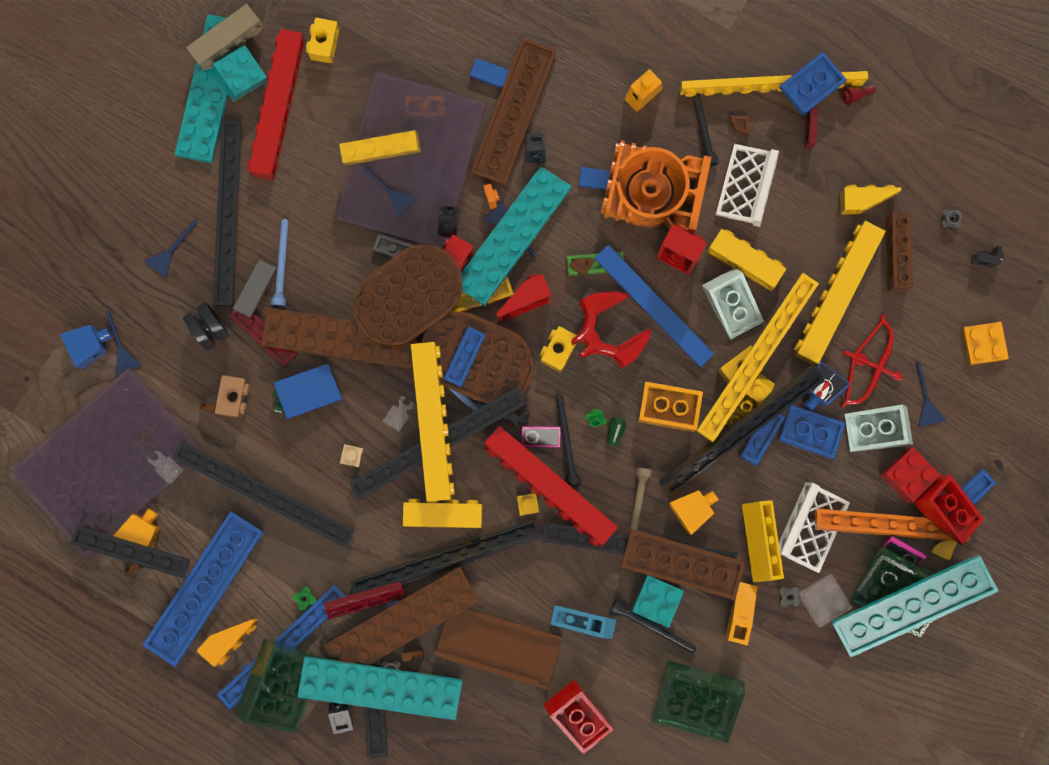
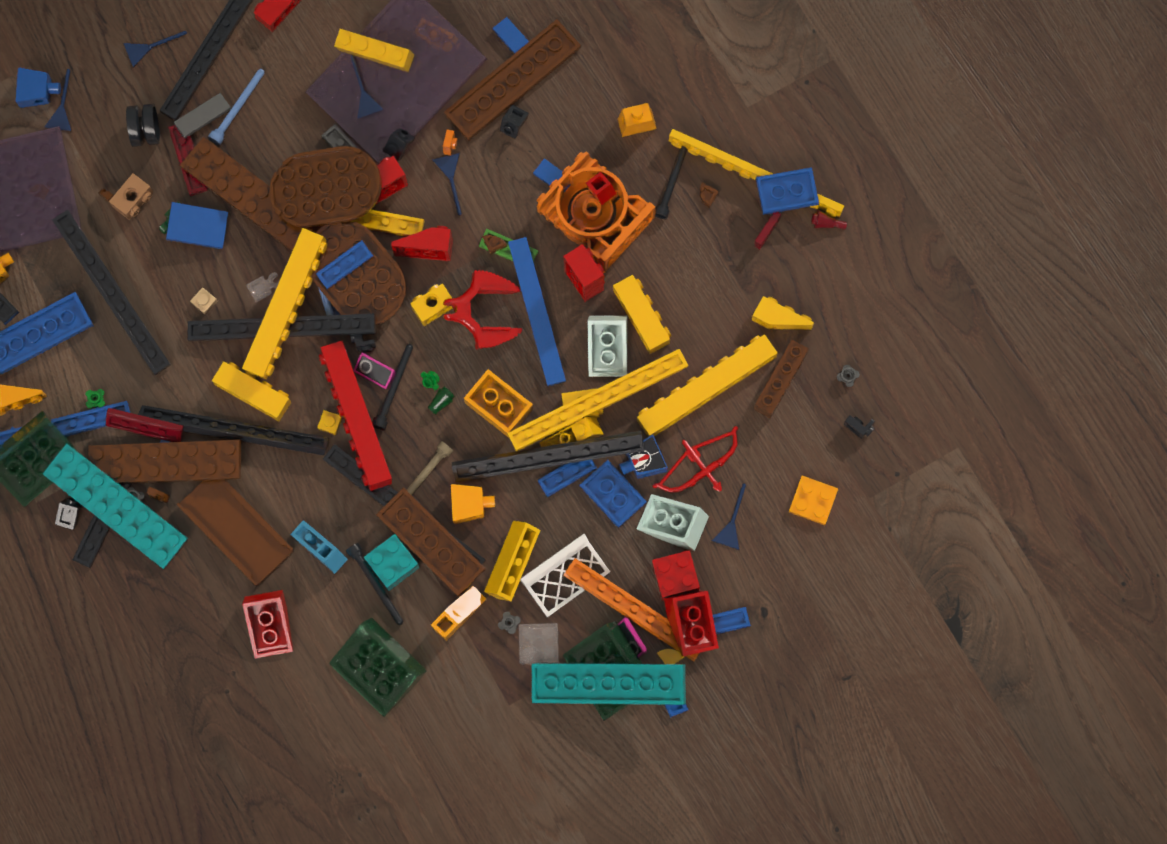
camera: 35 degrees right, 5 degrees down
(167, 468) = (43, 226): clear plate -> none
(513, 235) = (449, 186): teal plate -> none
(652, 166) = (601, 188): none -> red brick
(763, 188) = (696, 257): white fence -> none

